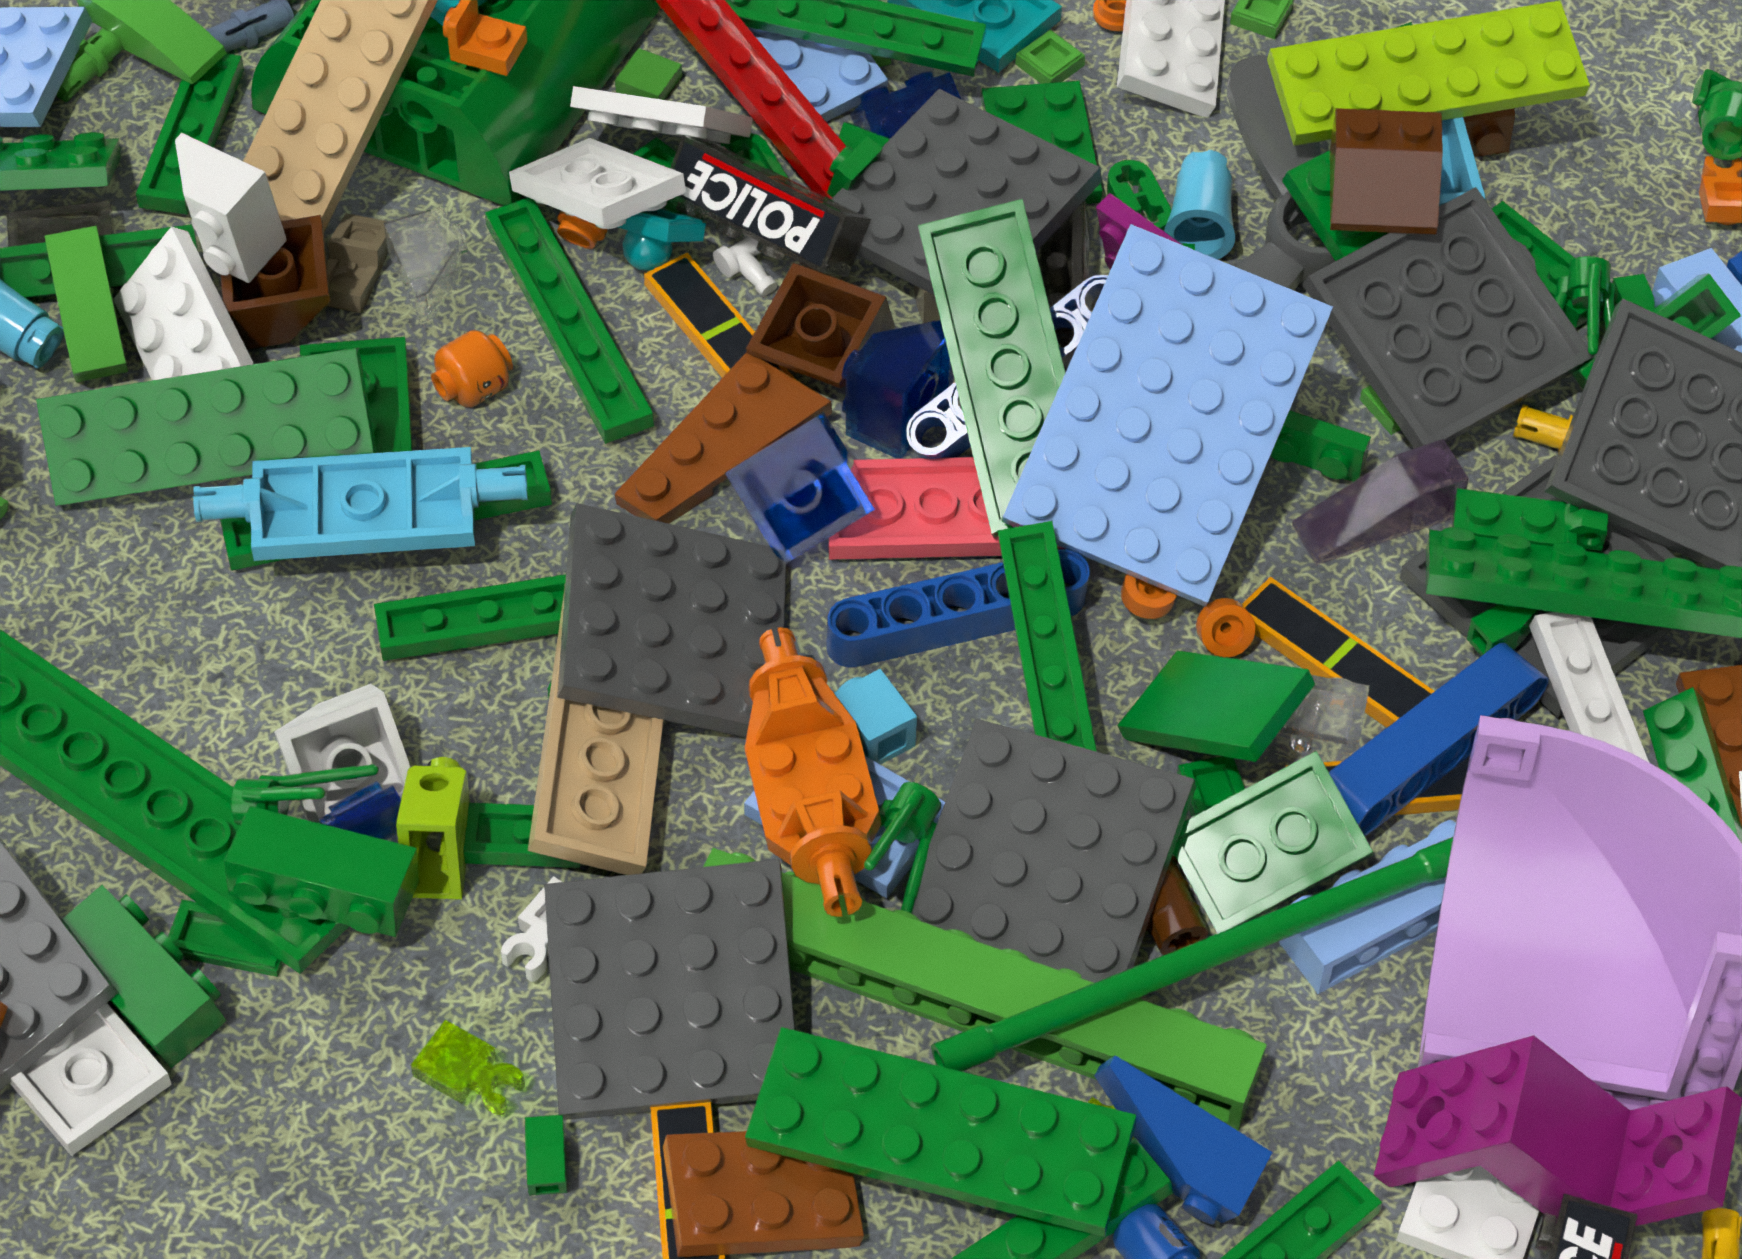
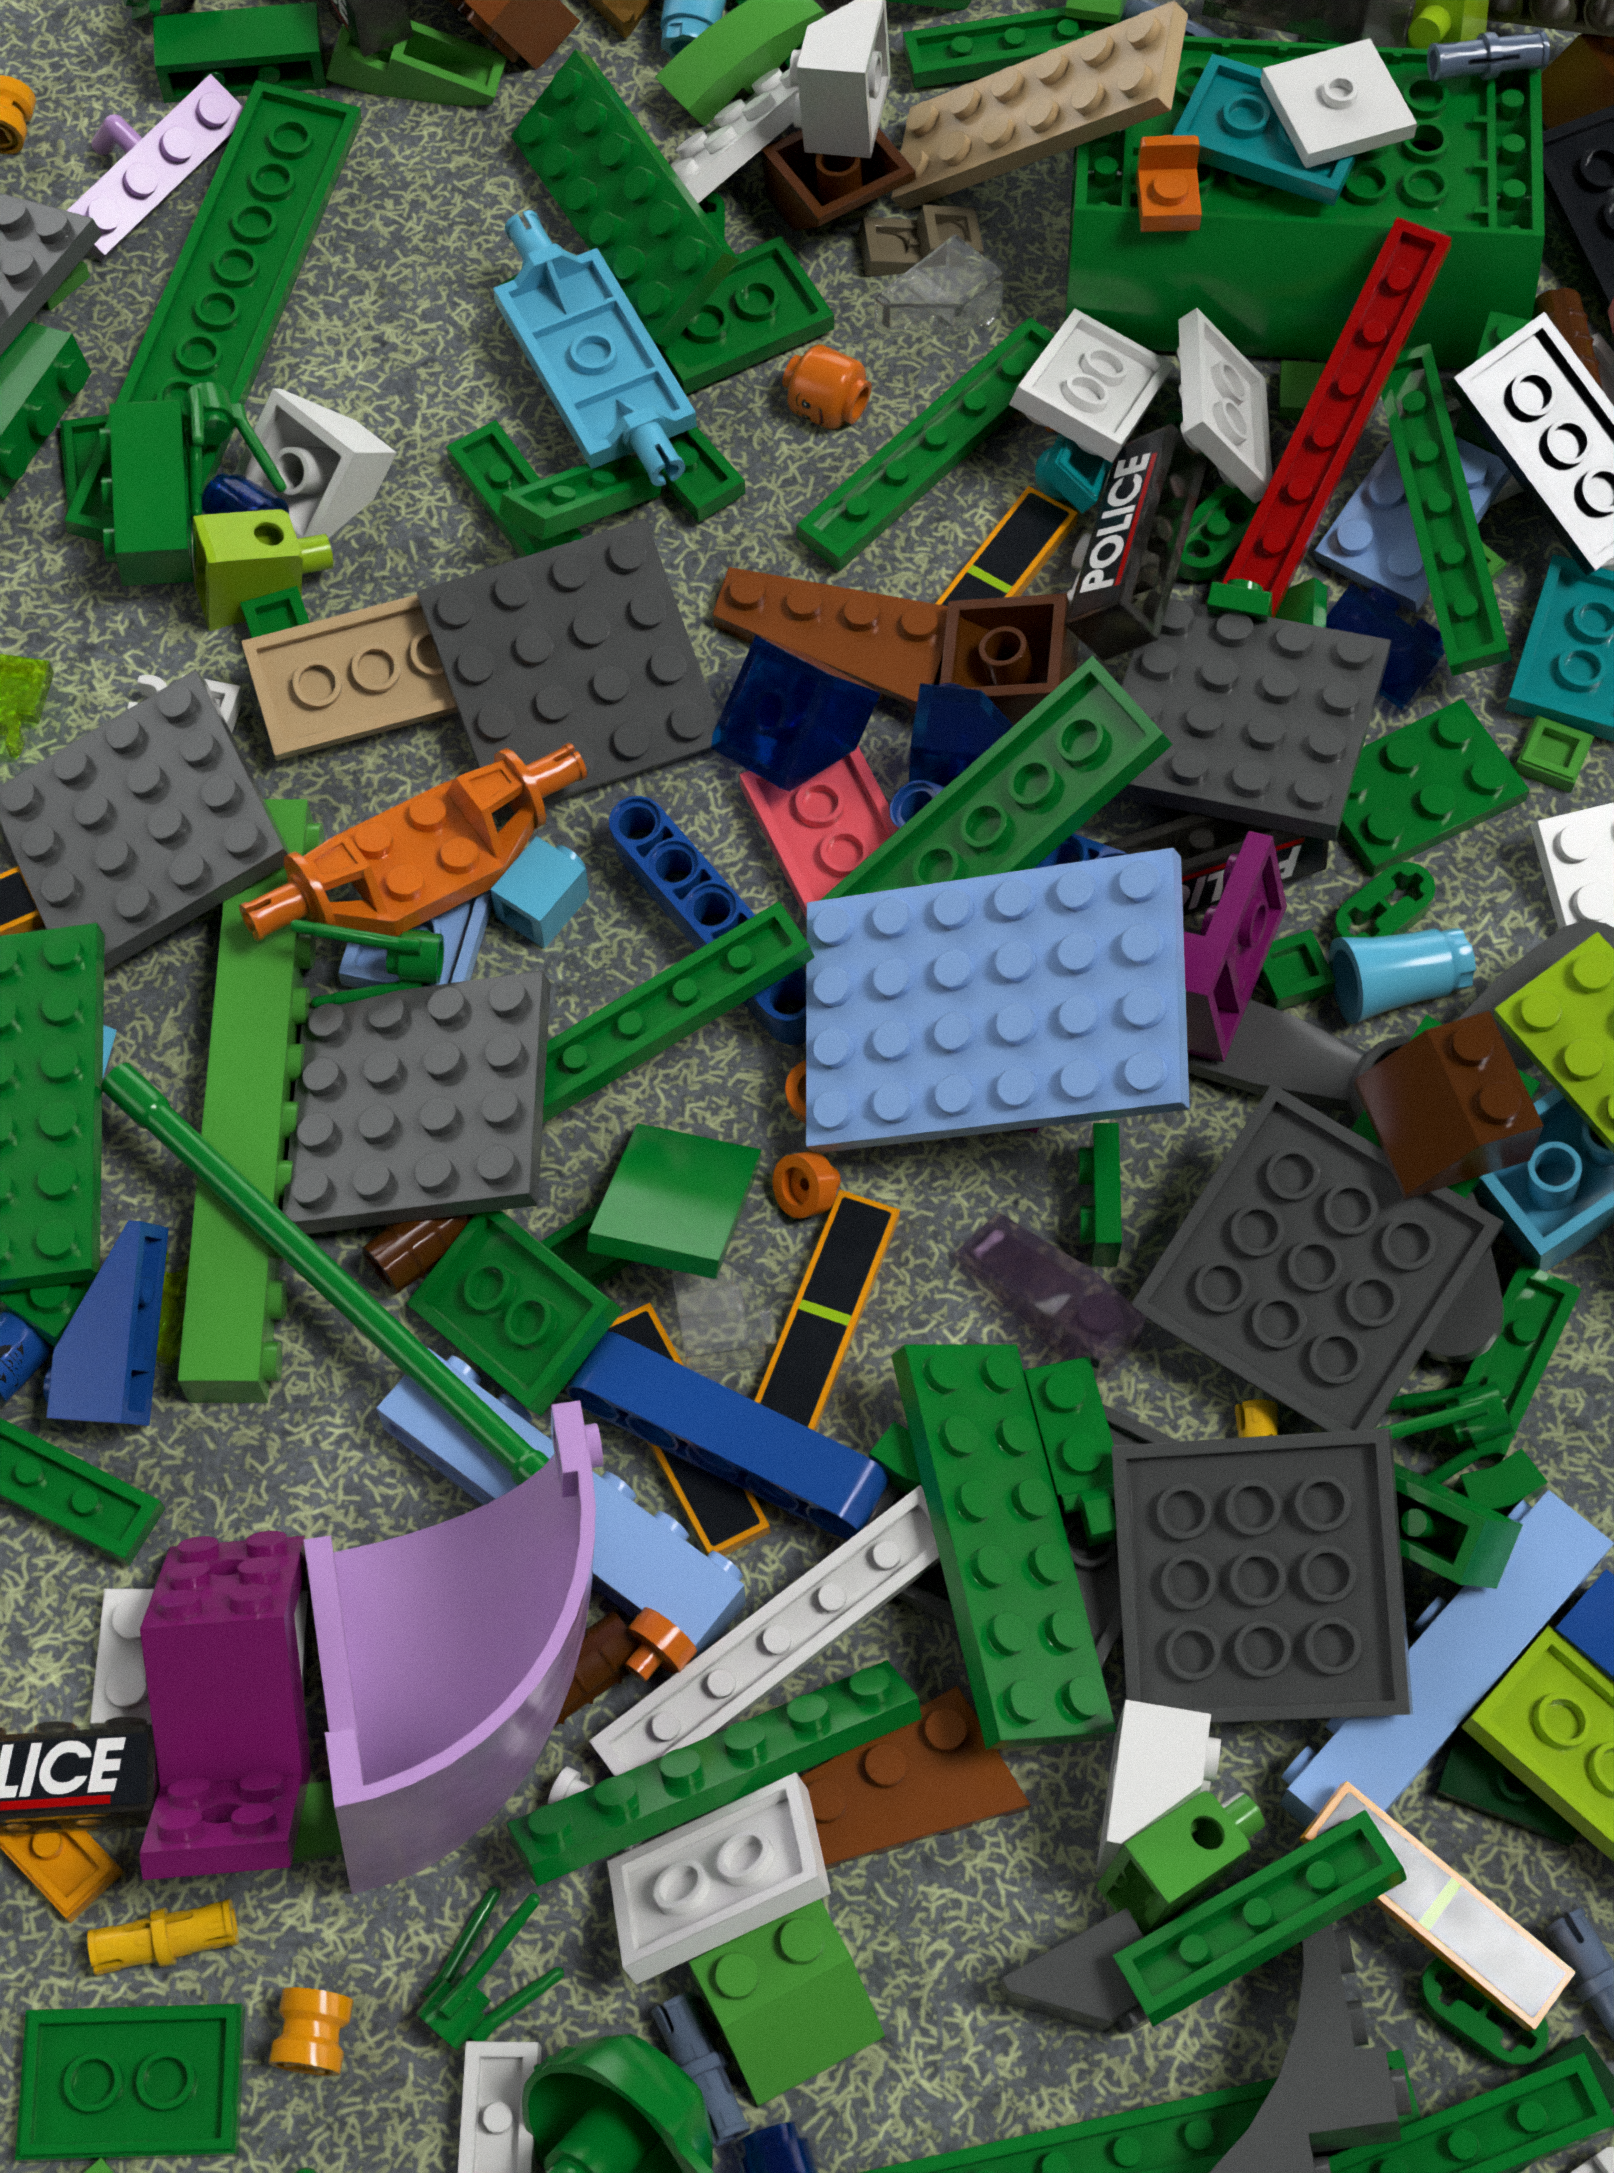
camera: 70 degrees right, 10 degrees up
(506, 561) = (577, 497): none -> green plate

